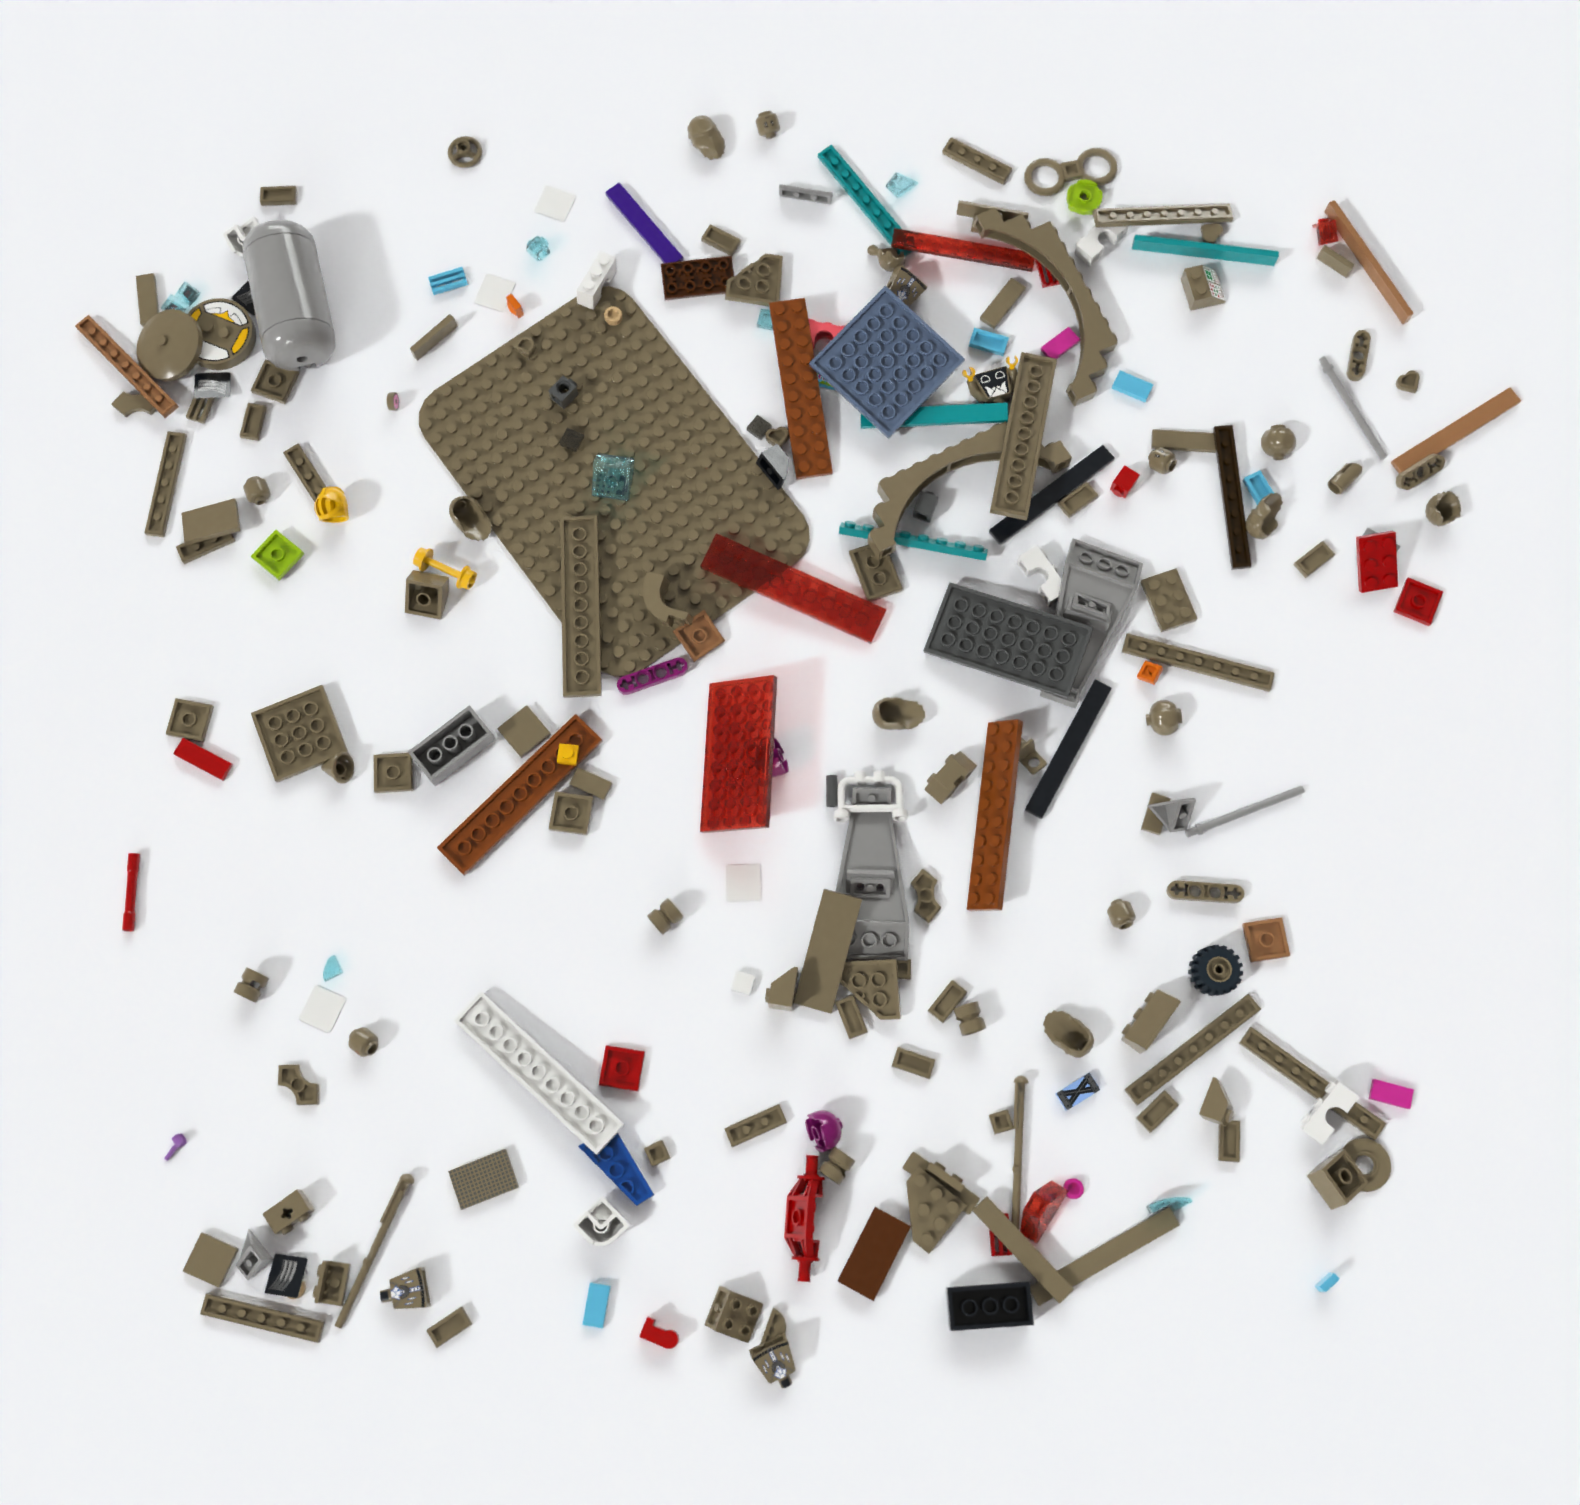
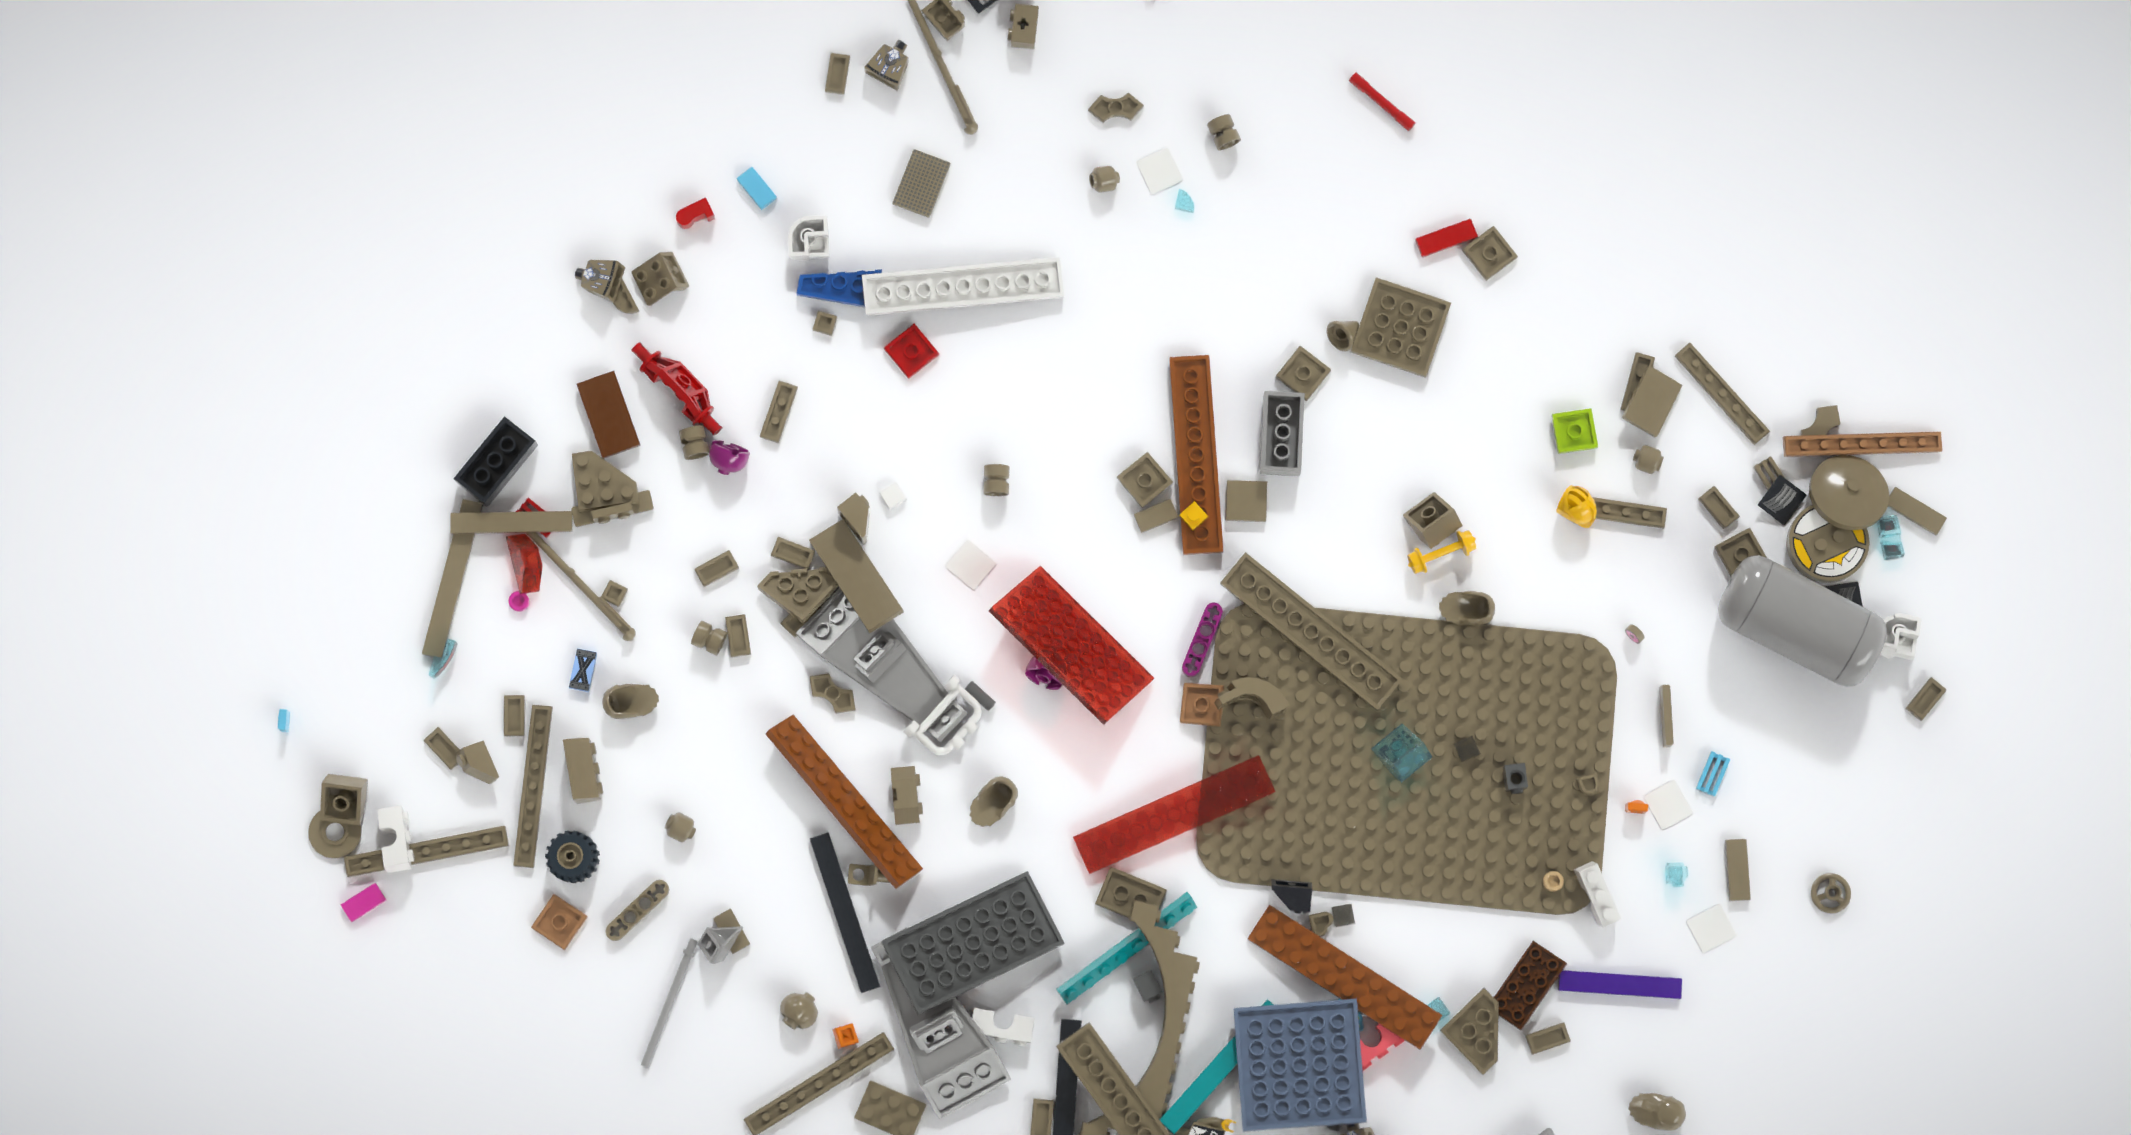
camera: 125 degrees right, 5 degrees up
(500, 216) = (1737, 869): none -> dark tan tile

